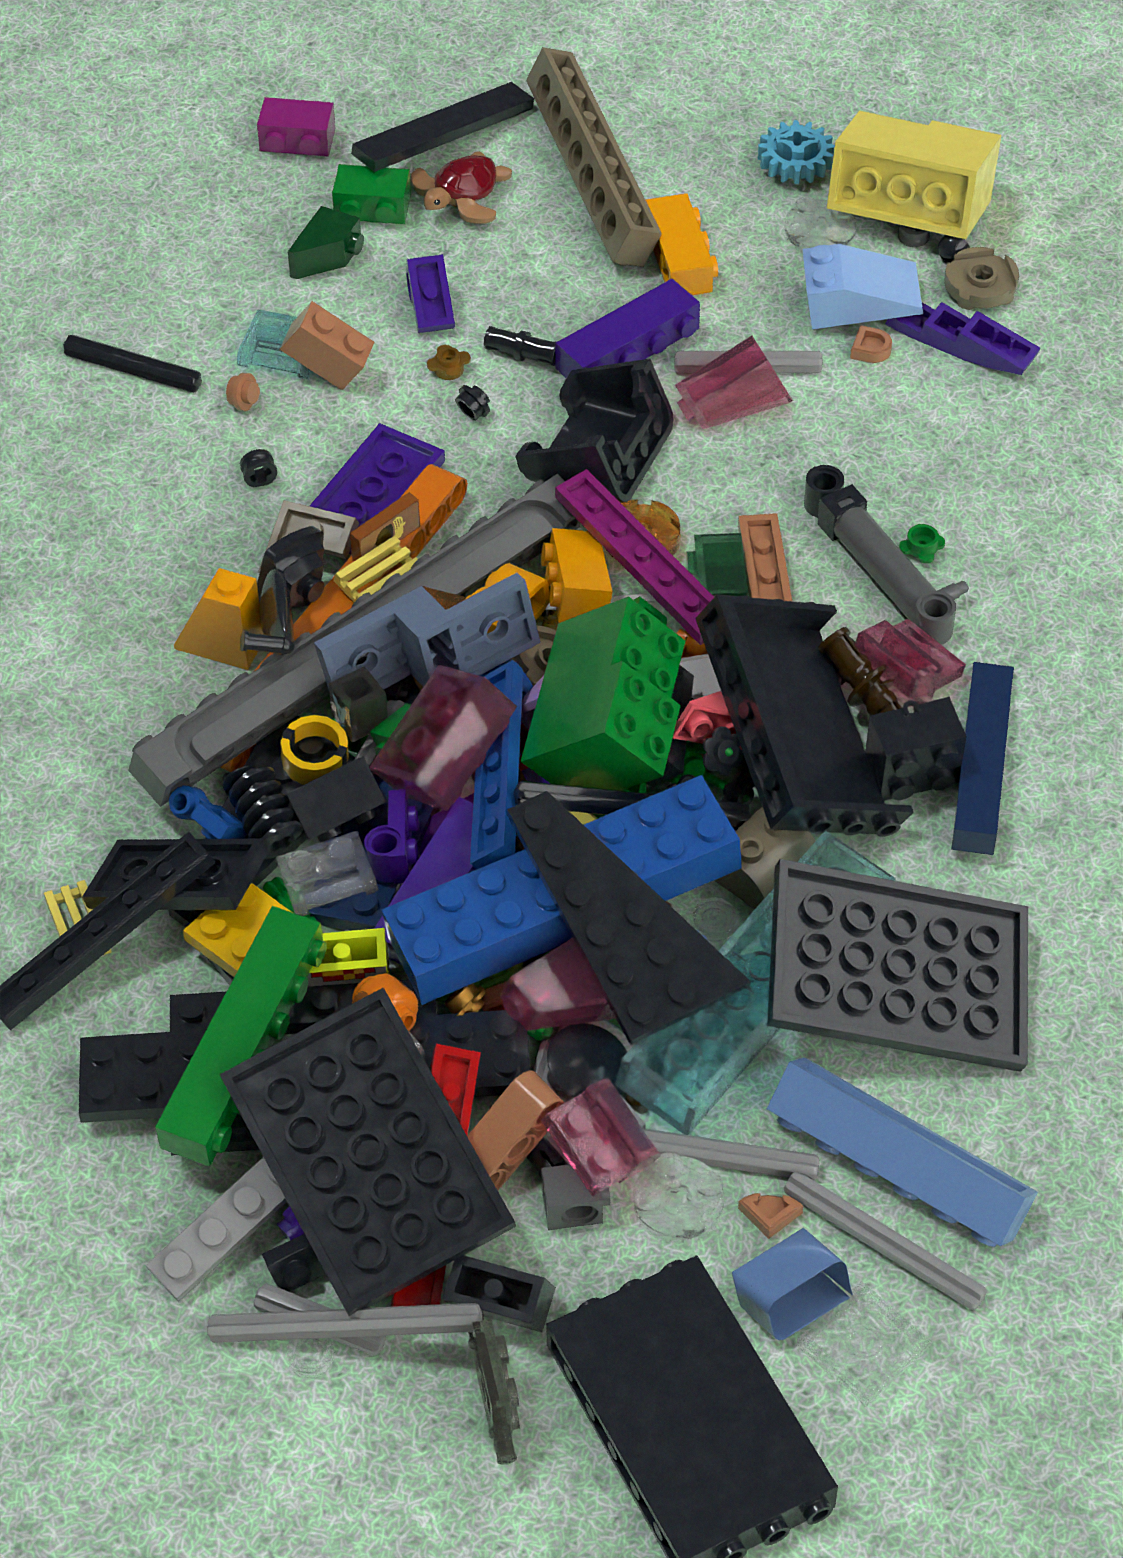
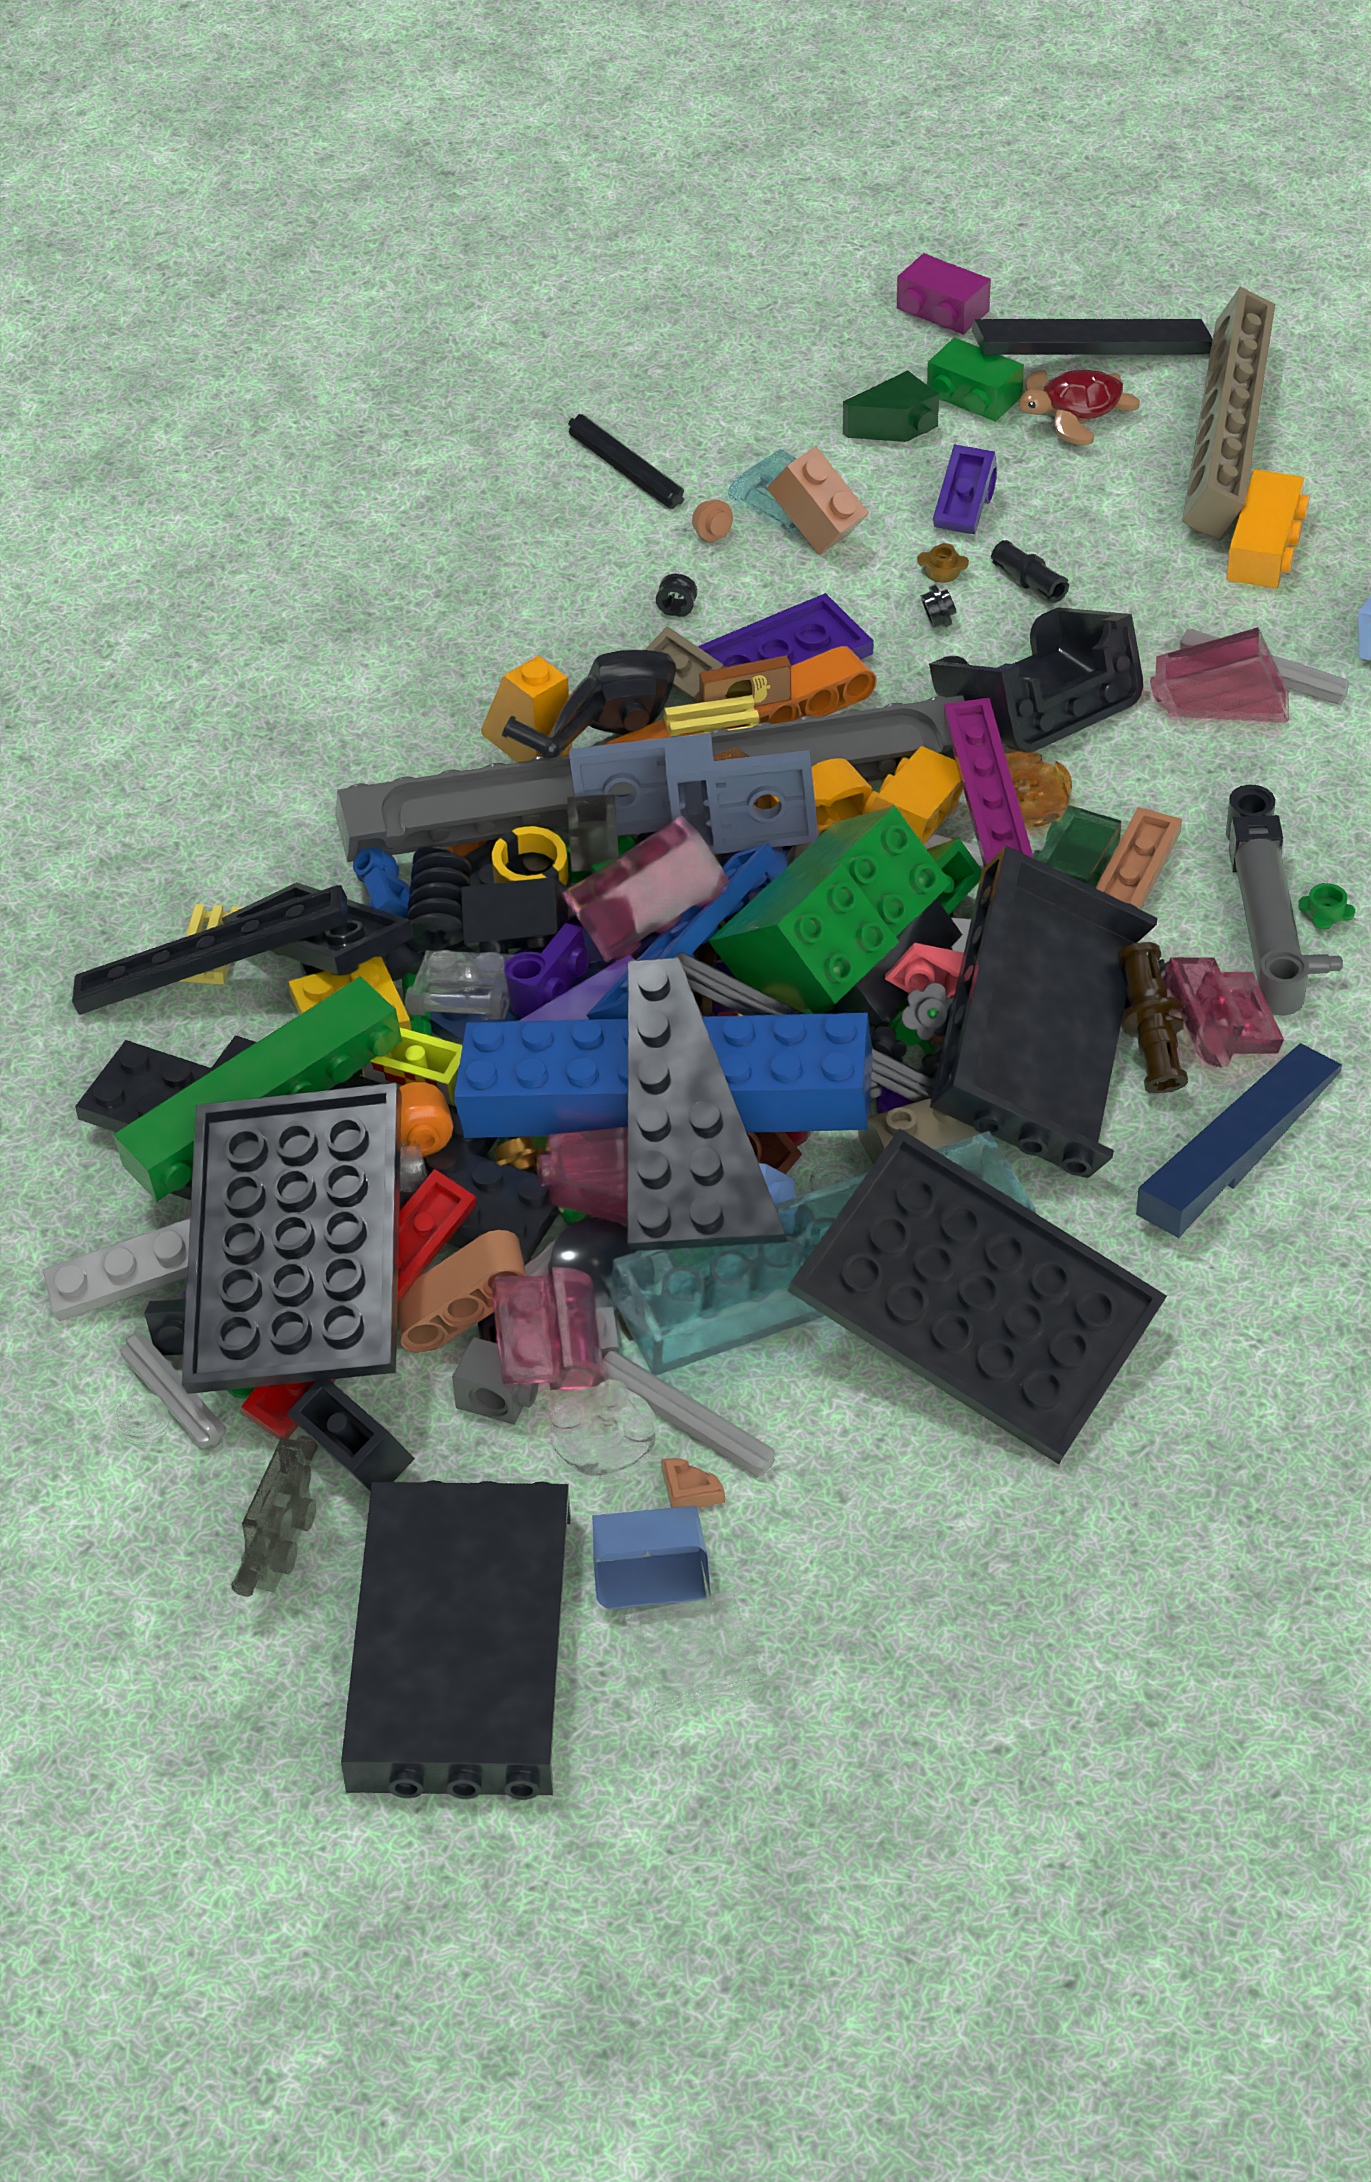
camera: 30 degrees right, 5 degrees down
(337, 1323) = (169, 1393): light grey axle -> none
(631, 331) = (1157, 592): dark purple brick -> none
(885, 1240) = (788, 1564): light grey axle -> none
(902, 1152) = (859, 1482): medium blue brick -> none
(915, 749) = (1152, 1093): black brick -> none

